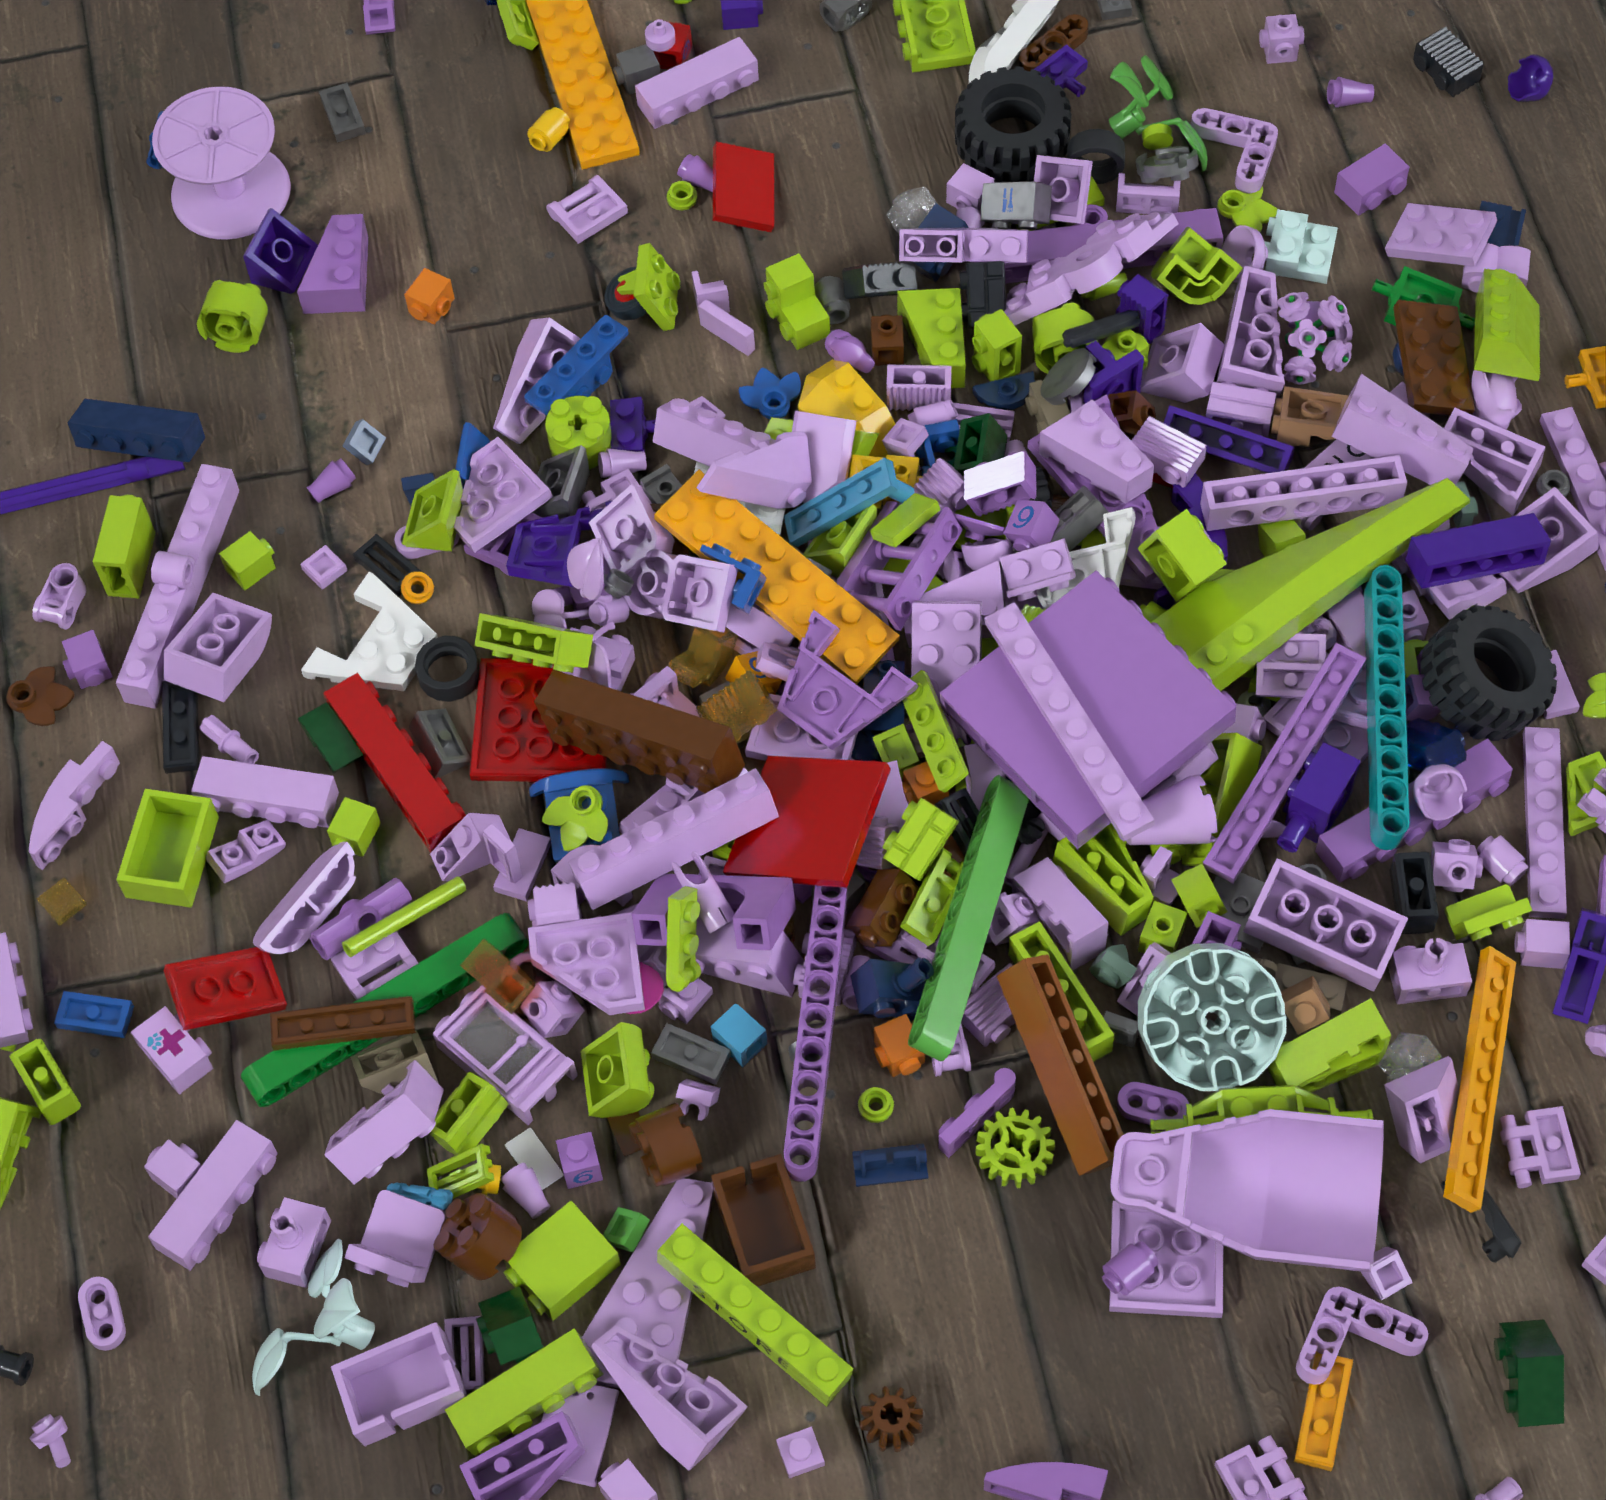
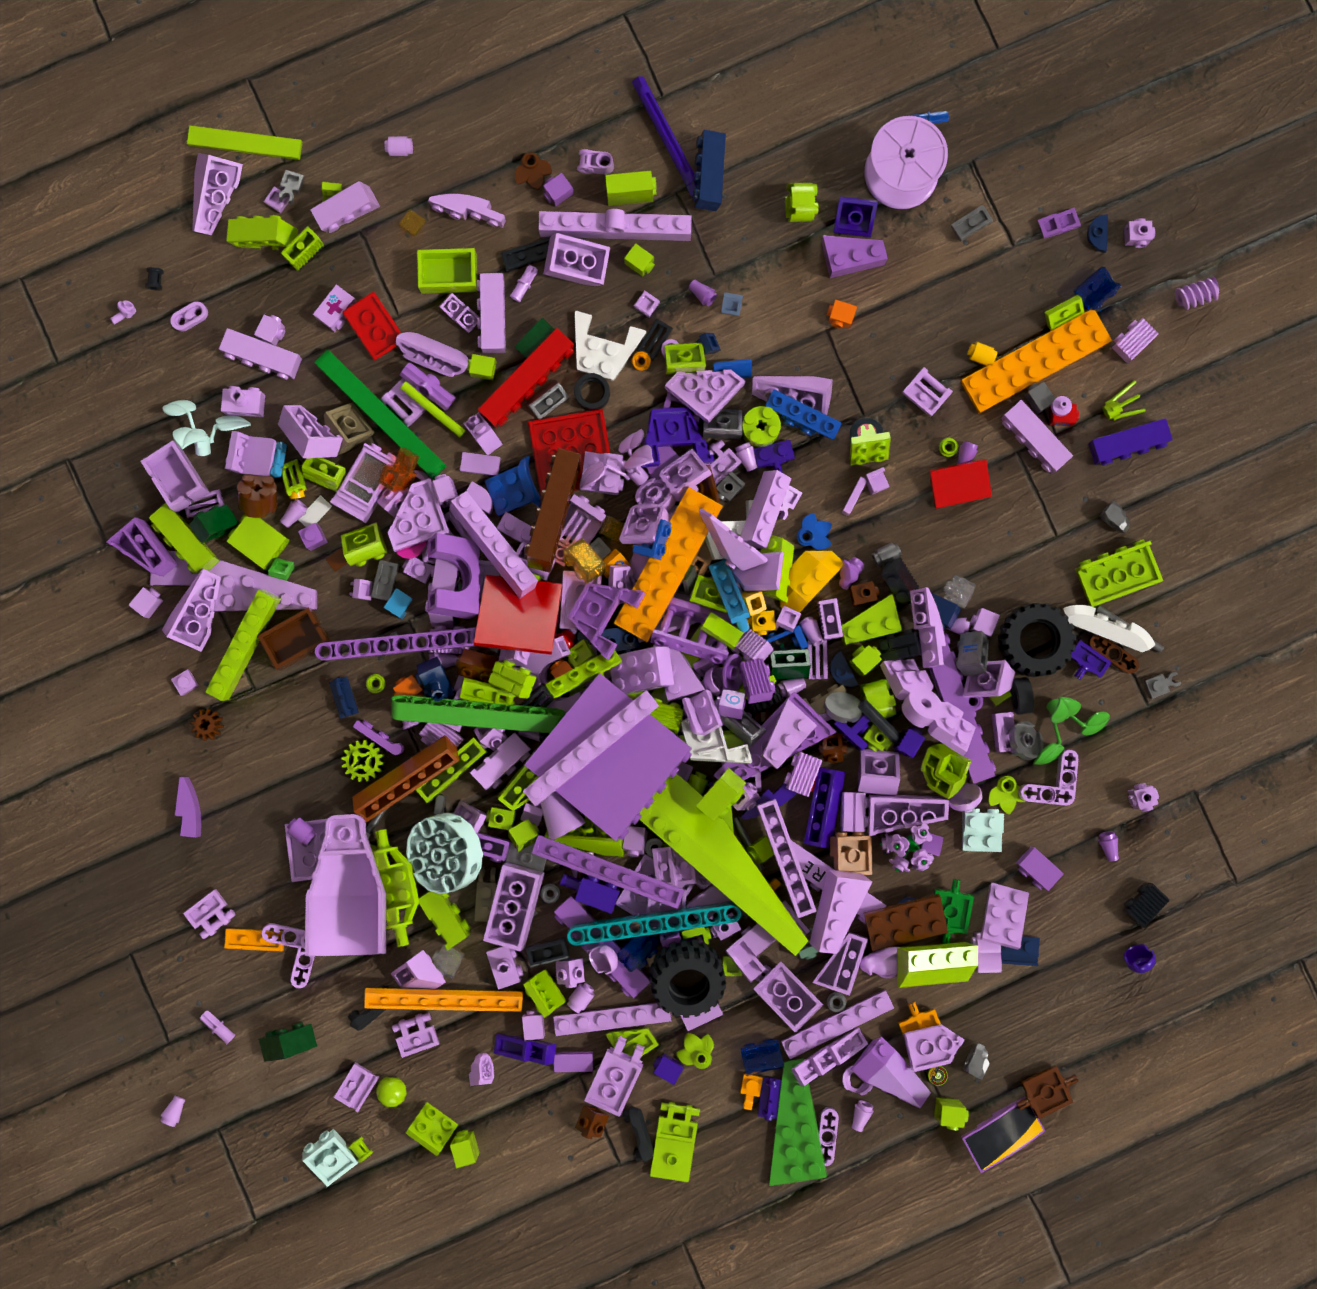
camera: 75 degrees right, 25 degrees up
(94, 1014) = (348, 261): blue plate -> none
(342, 1023) = (360, 394): reddish brown tile -> none
(502, 854) = (471, 453): lavender tile -> none
(534, 641) = (604, 437): lime brick -> none
(576, 822) = (501, 488): lime plate -> none
(618, 583) = (650, 475): flat silver plate -> none
(667, 1145) = (325, 580): reddish brown brick -> none
(682, 939) = (433, 562): lime plate -> none
(714, 907) = (457, 571): lavender piece -> none
(794, 302) = (878, 532): lime brick -> none
(1113, 966) = (475, 794): sand green plate -> none
(1153, 1102) = (399, 828): medium lavender plate -> none
(1157, 136) = (1049, 731): lime tile -> none
(1305, 1005) = (467, 901): medium nougat brick -> none
(1387, 1273) = (333, 963): lavender slope -> none
(1477, 550) = (764, 964): dark purple brick -> none

